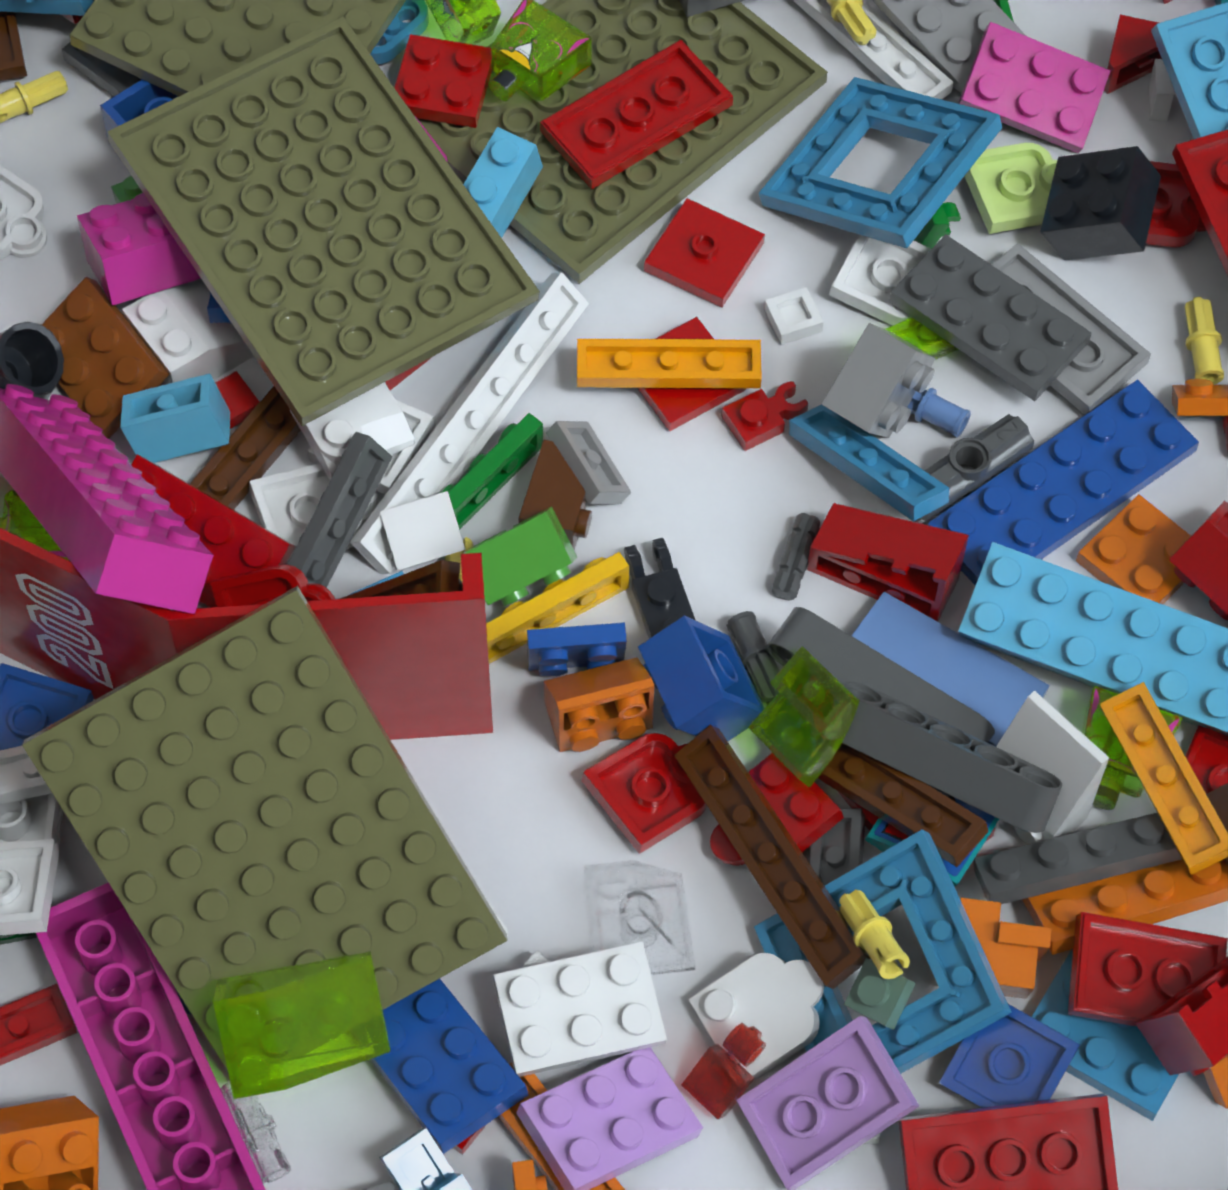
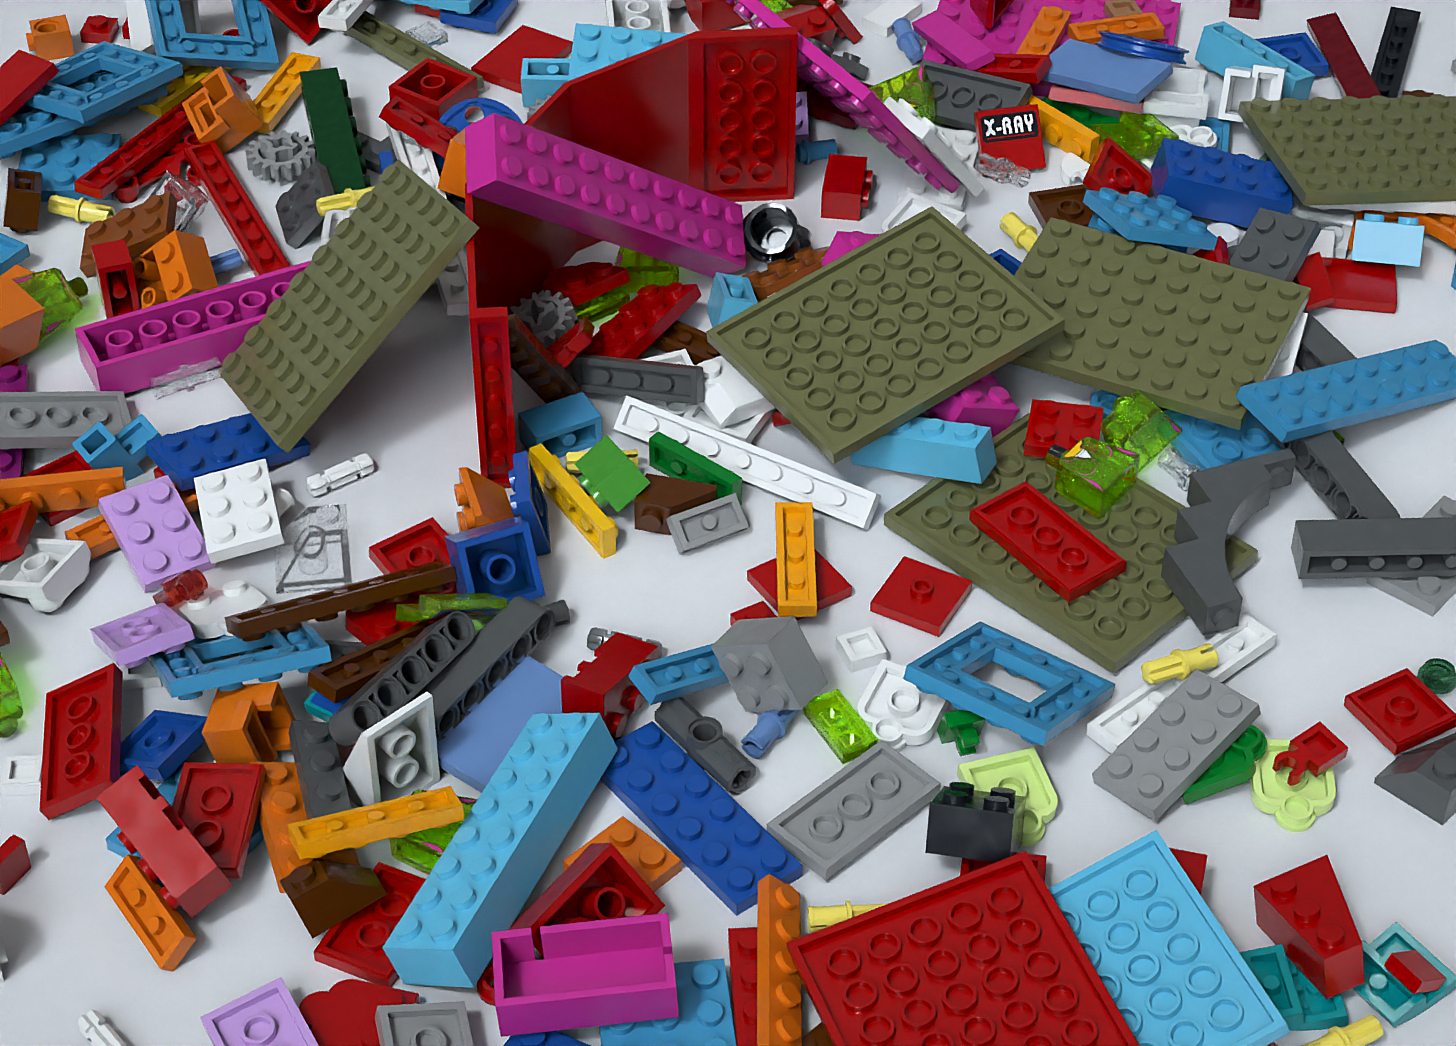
camera: 90 degrees right, 20 degrees down
(299, 1023) = (233, 355): clear neon green slope -> none
(422, 530) = (637, 428): white sticker -> none
(658, 595) = (588, 570): black hinge -> none
(873, 934) = (251, 626): light yellow axle -> none
(879, 997) = (210, 642): sand green plate -> none
(990, 317) = (852, 755): dark grey plate -> none
(1035, 87) = (1113, 794): dark pink plate -> none

